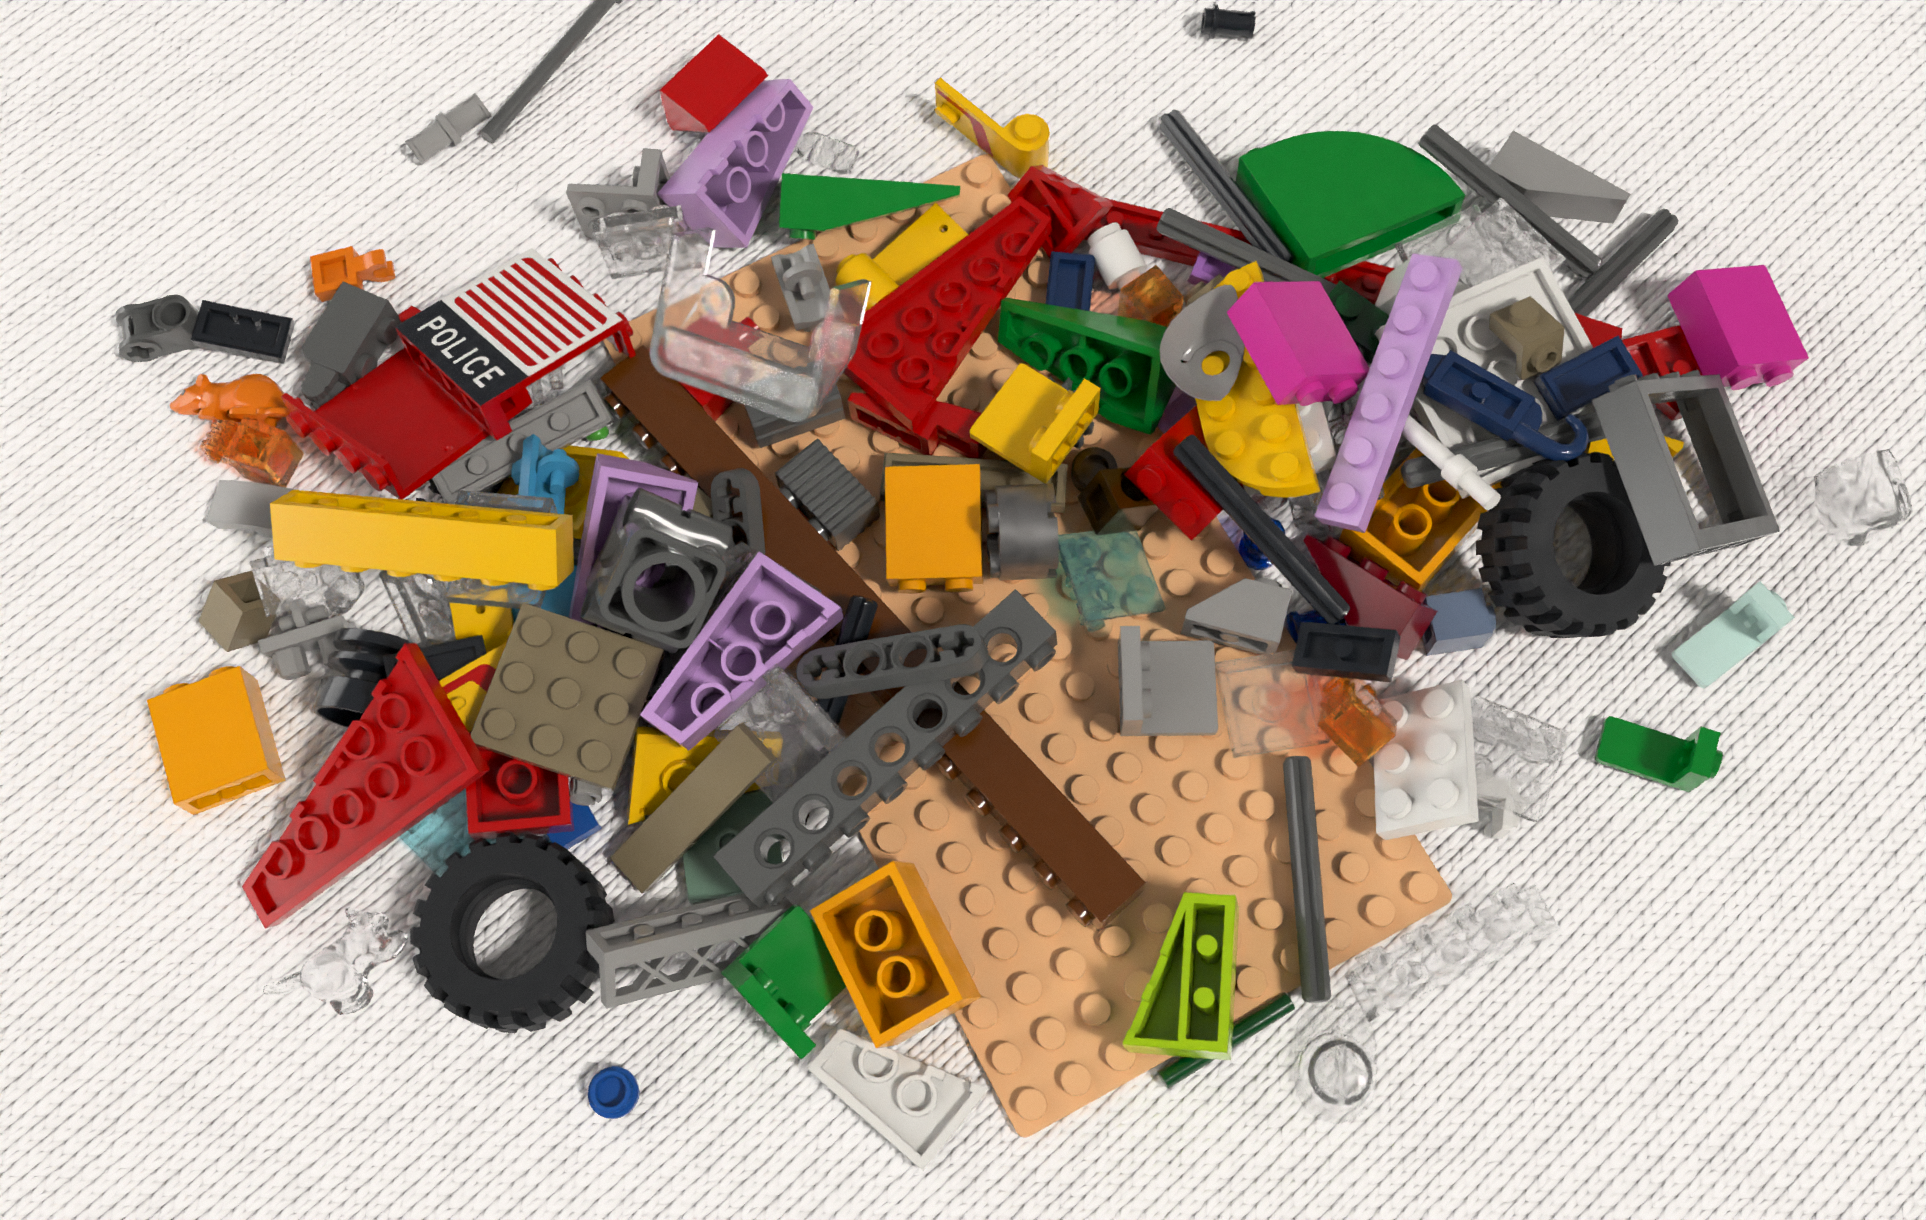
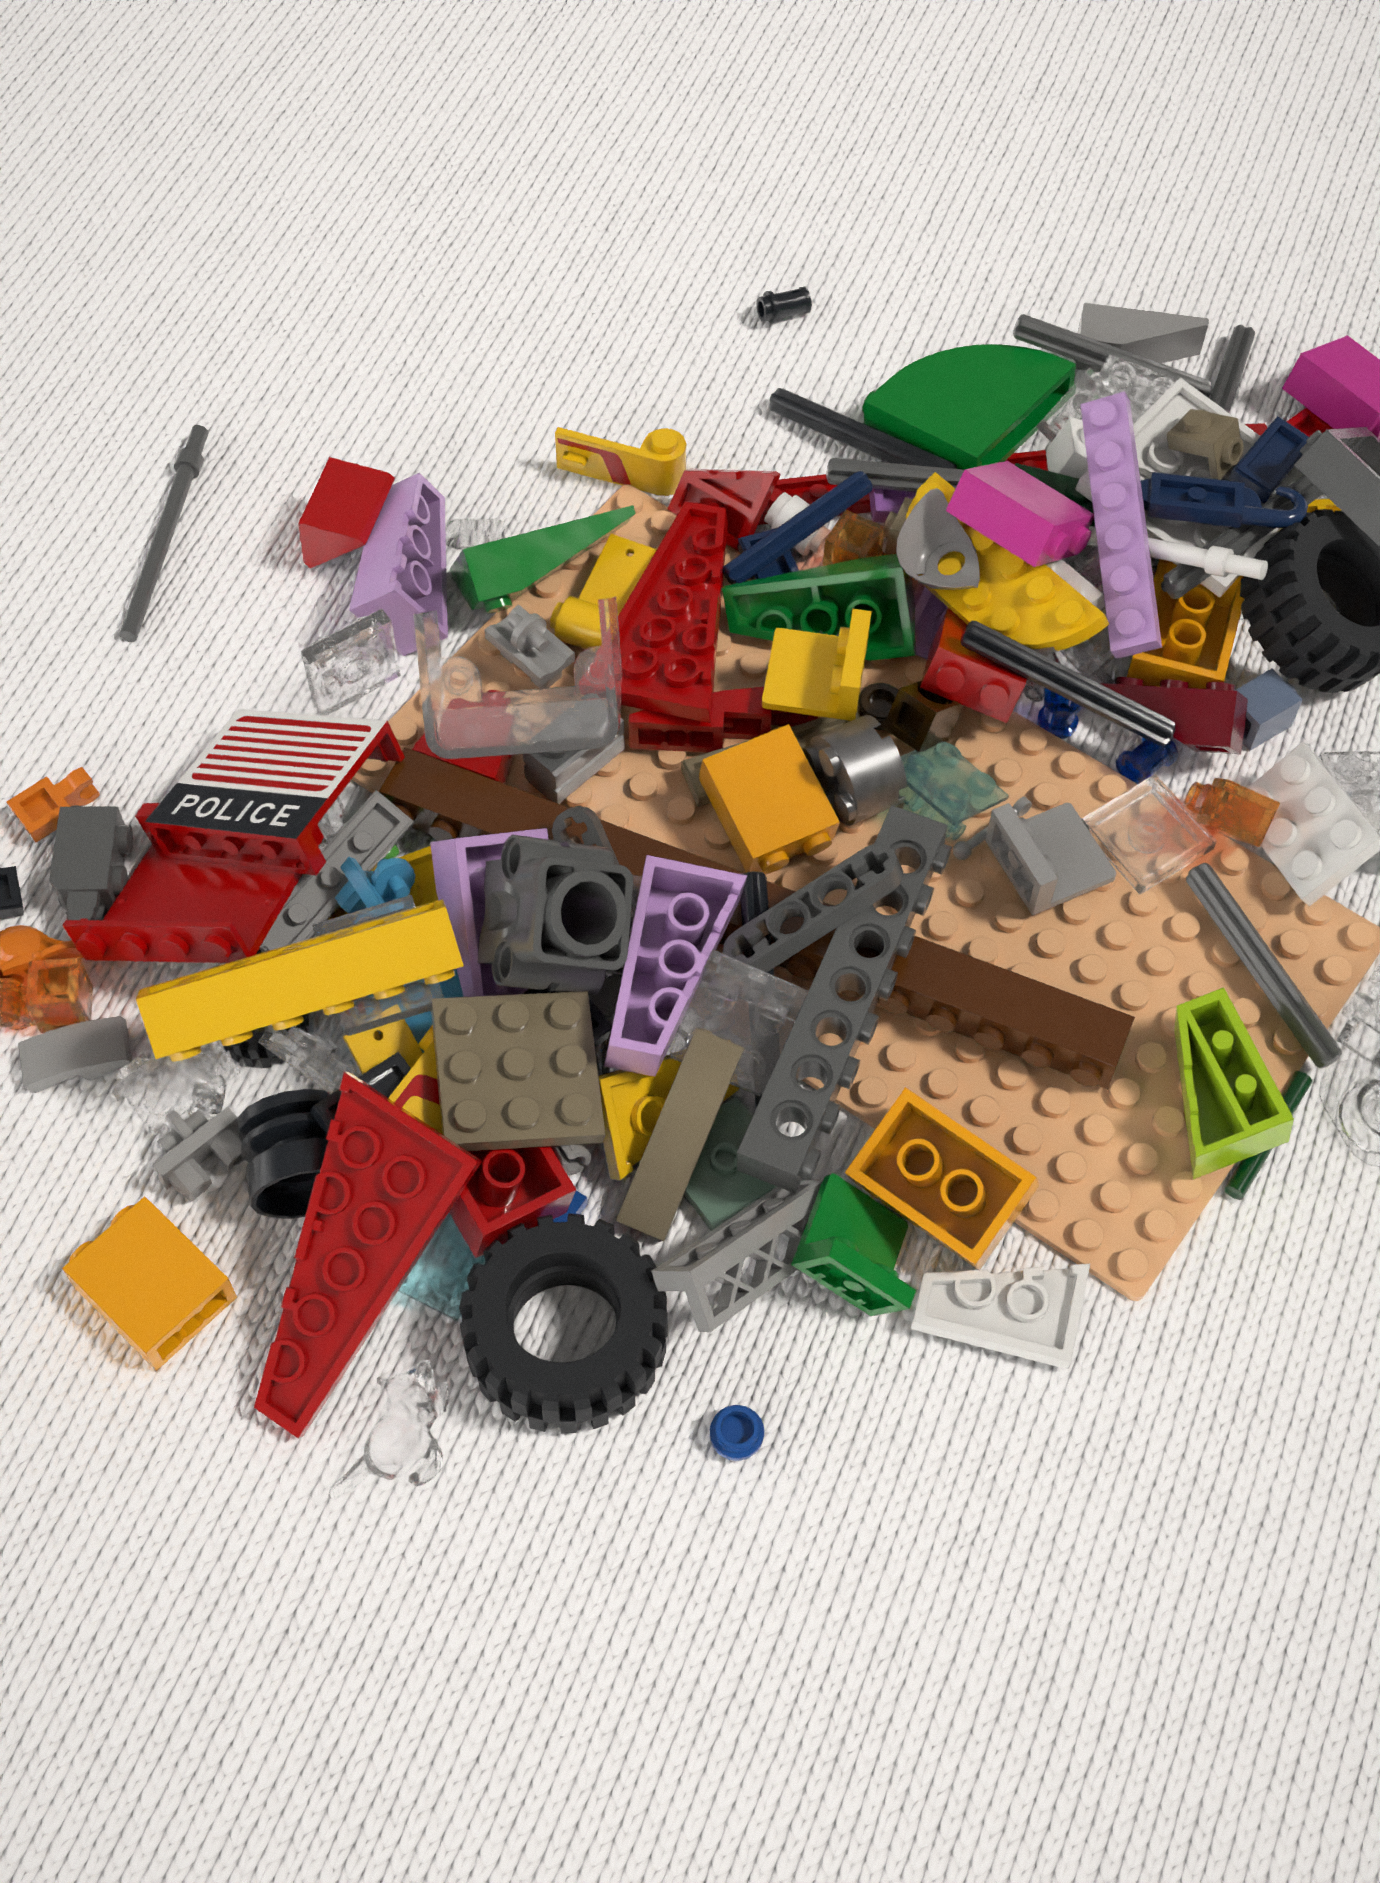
camera: 30 degrees left, 10 degrees down
(235, 612) = (112, 1150): dark tan brick -> none
(448, 128) = (86, 640): light grey pin -> none
(601, 200) = (286, 640): light grey bracket -> none
(827, 494) = (652, 808): dark grey brick -> none
(1093, 644) = (963, 849): none -> light grey hinge
(1104, 266) = (797, 528): none -> dark blue axle
(1242, 616) = (1085, 771): light grey slope -> none
(1346, 651) = (1194, 758): black plate -> none

